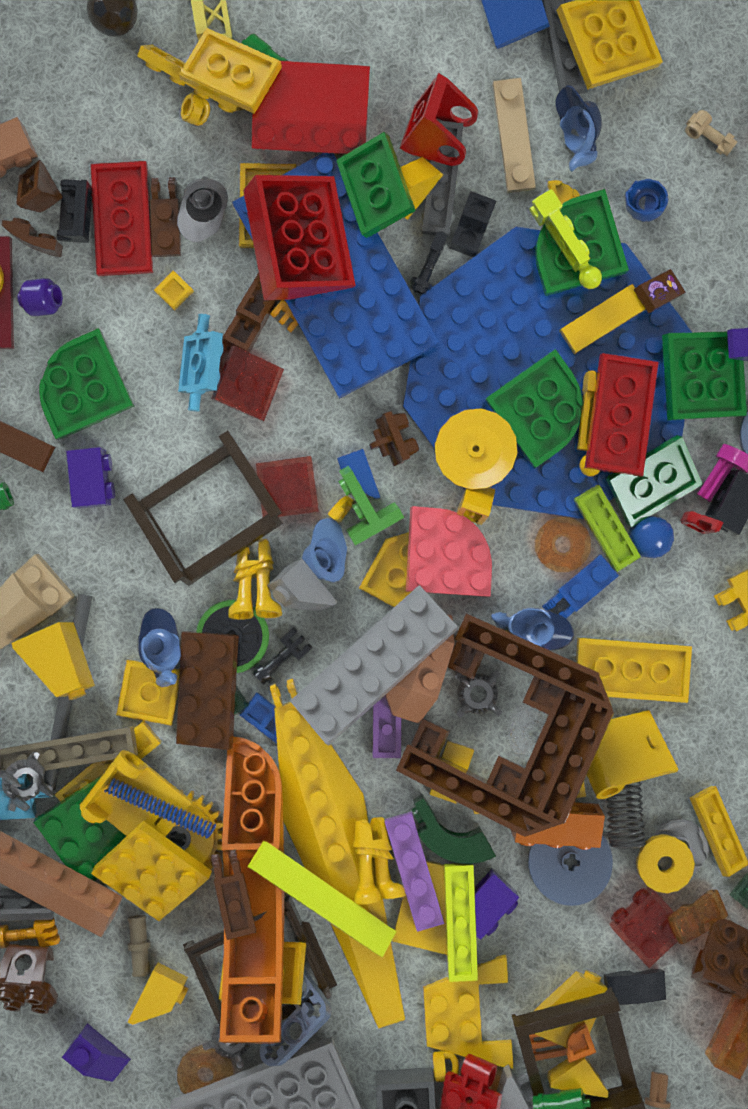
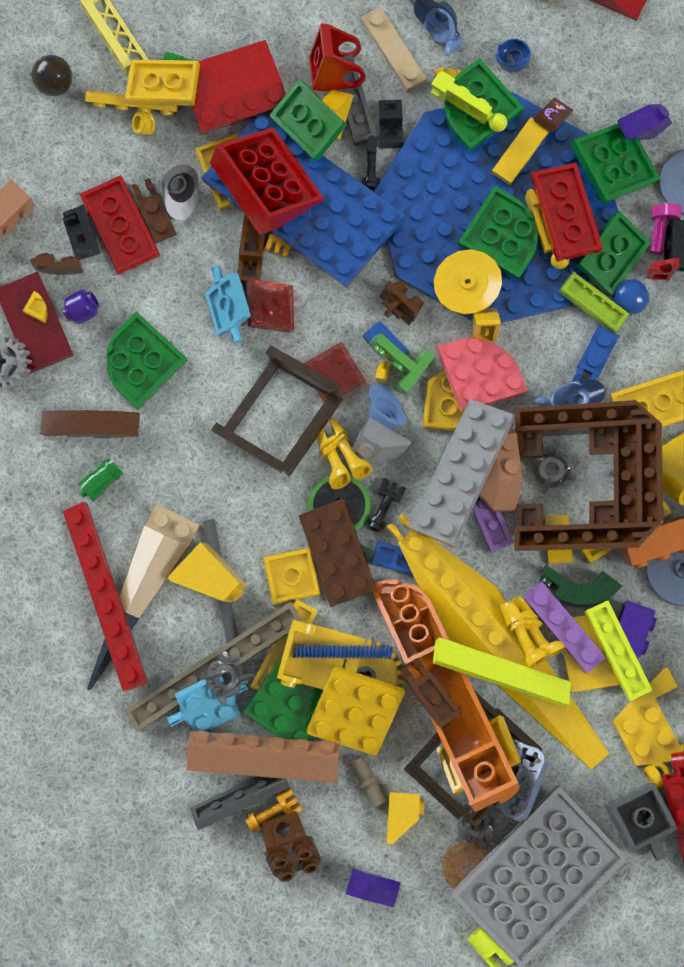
camera: 20 degrees left, 10 degrees down
(37, 189) = (46, 227): reddish brown slope -> none
(90, 477) = (175, 426): dark purple brick -> none
(159, 645) = (286, 533): medium blue hair -> none
(173, 290) = (182, 261): yellow tile -> none
(579, 544) = (558, 342): clear orange tile -> none

